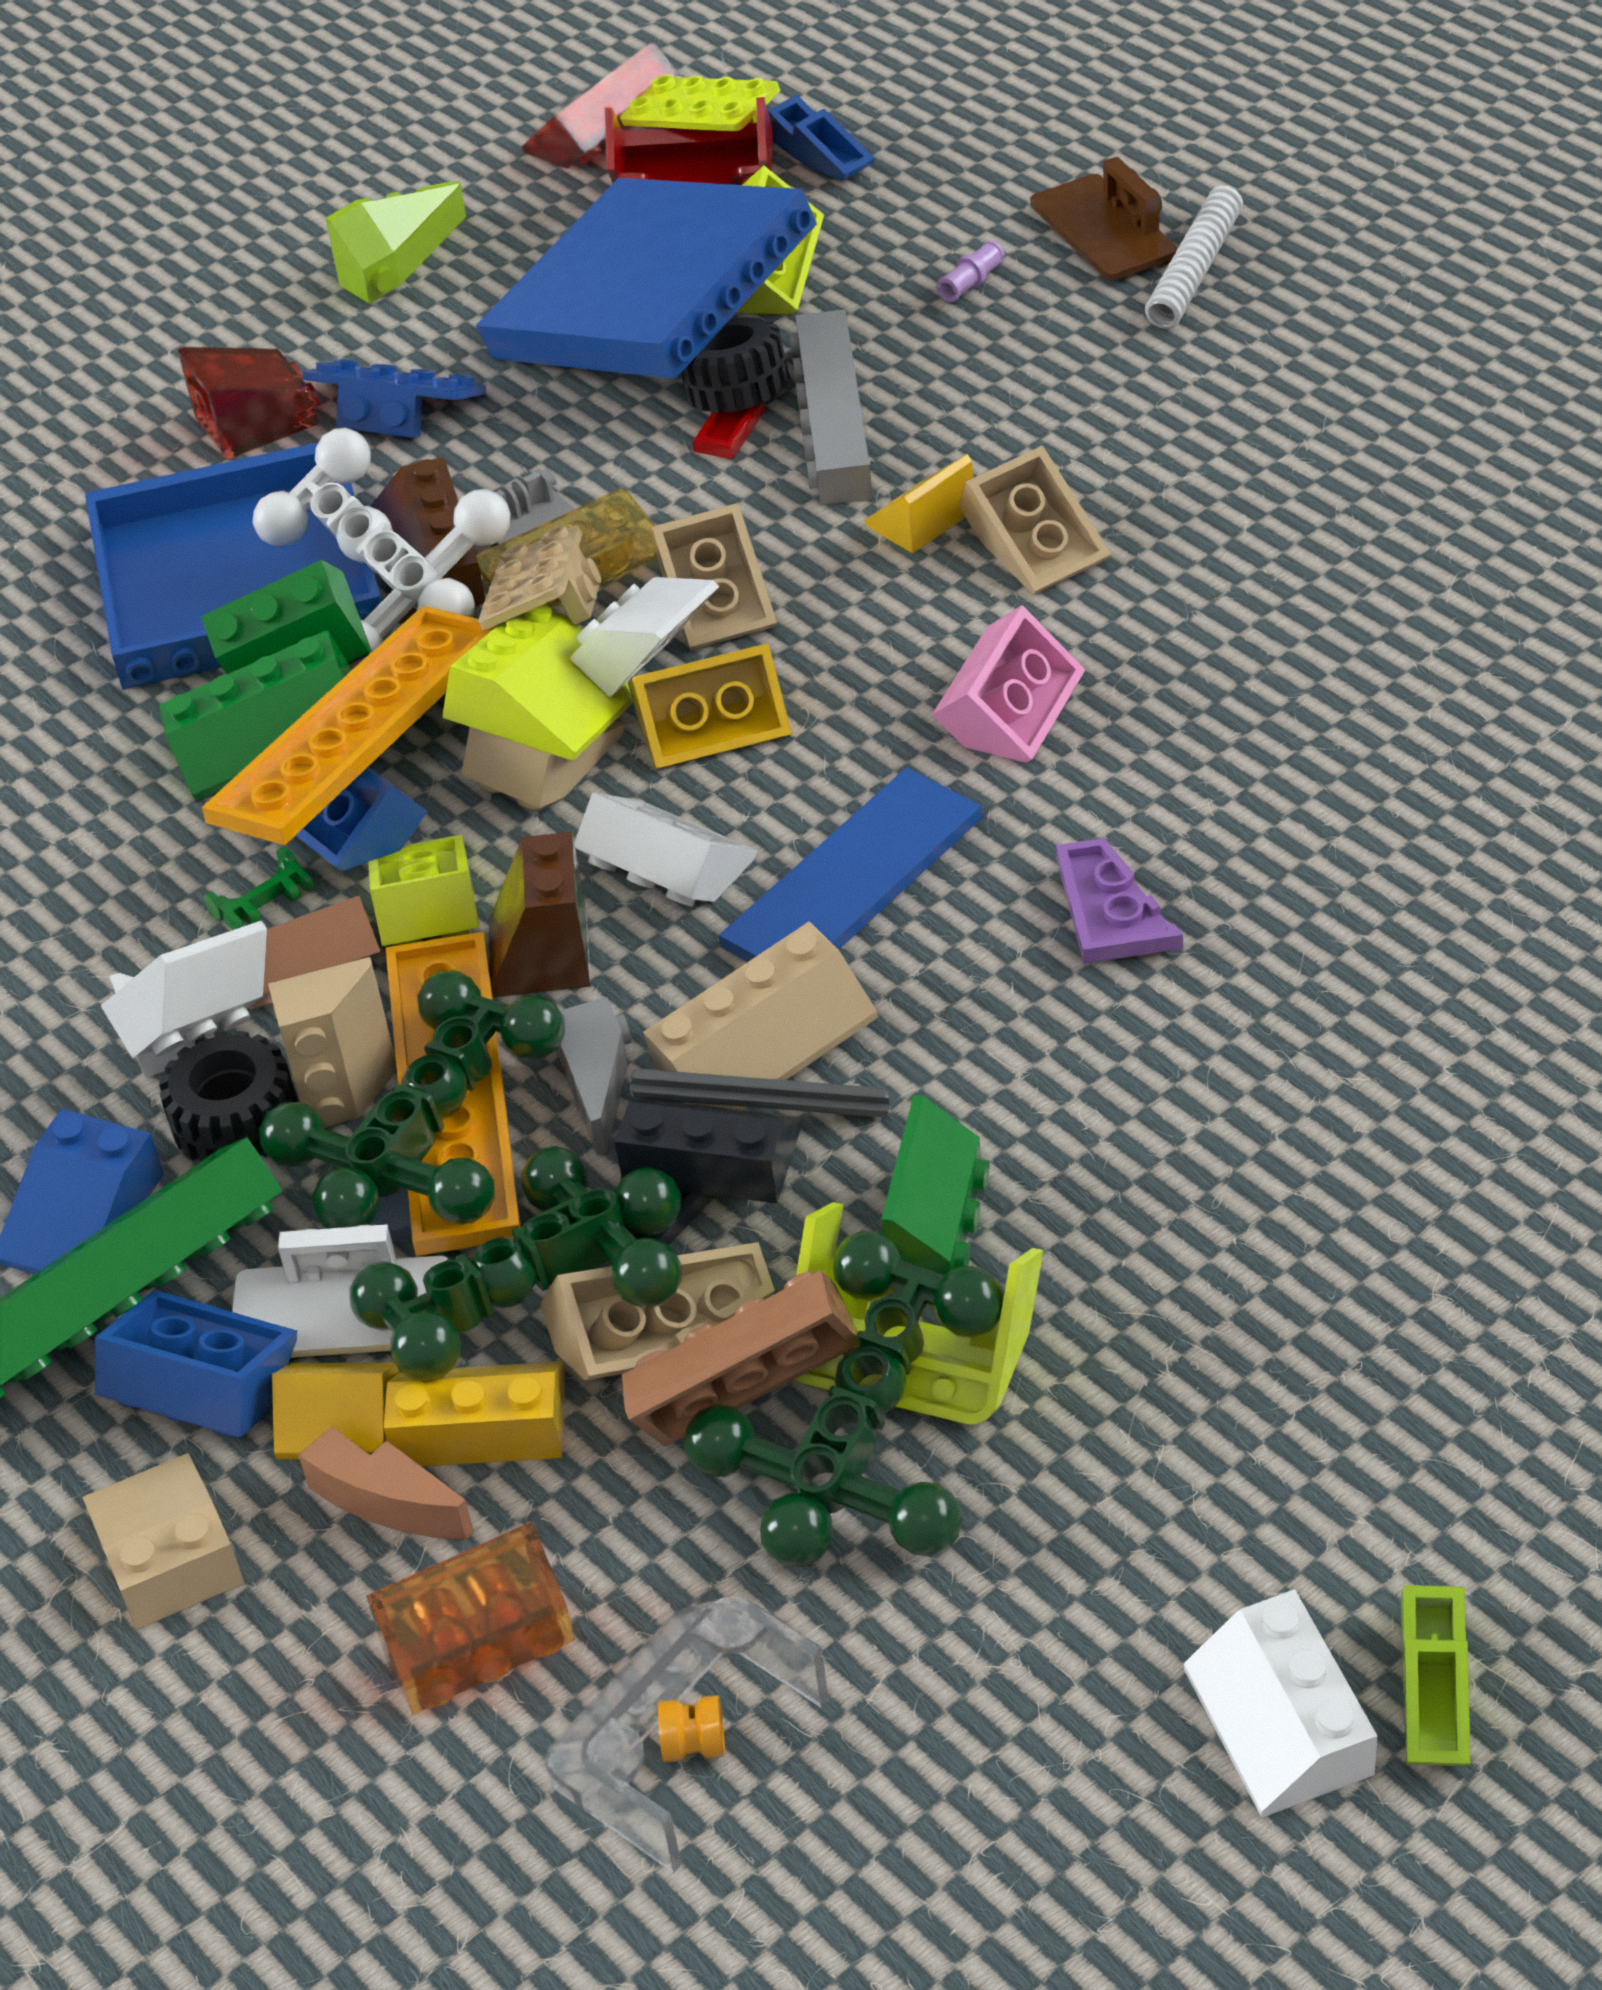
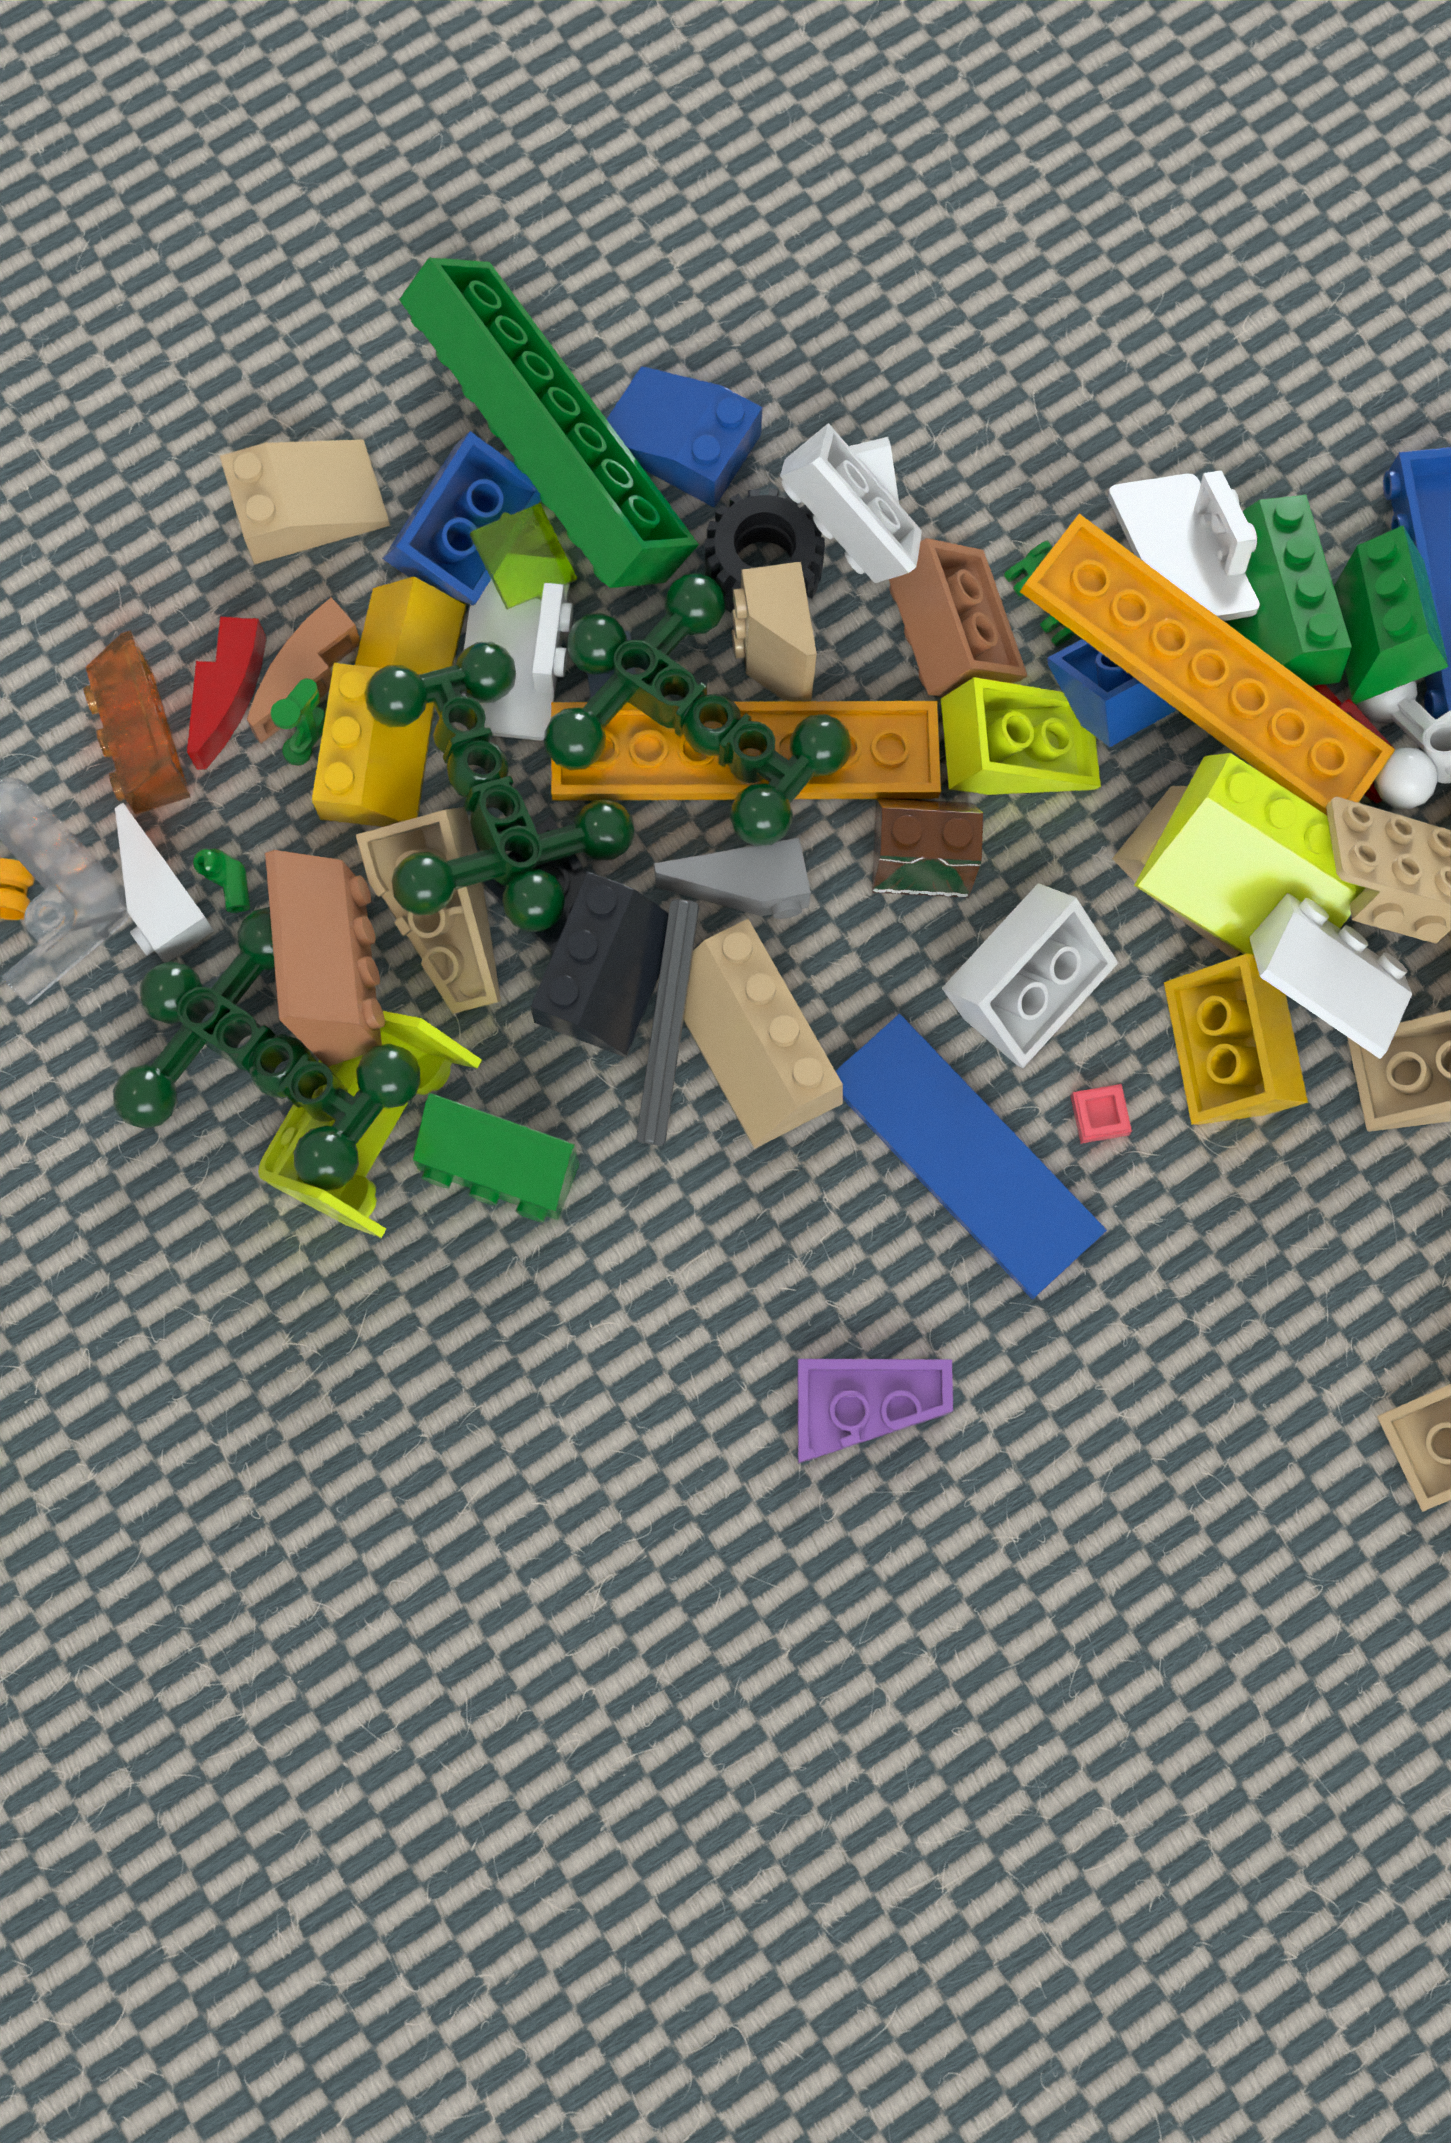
camera: 90 degrees right, 30 degrees up
(192, 769) = (1192, 537): none -> white bracket
(238, 1295) = (522, 555): none -> clear neon green piece
(388, 1550) = (224, 688): none -> red slope
(447, 1434) = (301, 711): none -> green piece
(642, 1520) = (228, 874): none -> green arm
(685, 1566) = (154, 896): none -> white slope
(793, 792) = (1101, 1113): none -> coral tile
(1009, 689) = (1205, 1356): bright pink slope -> none

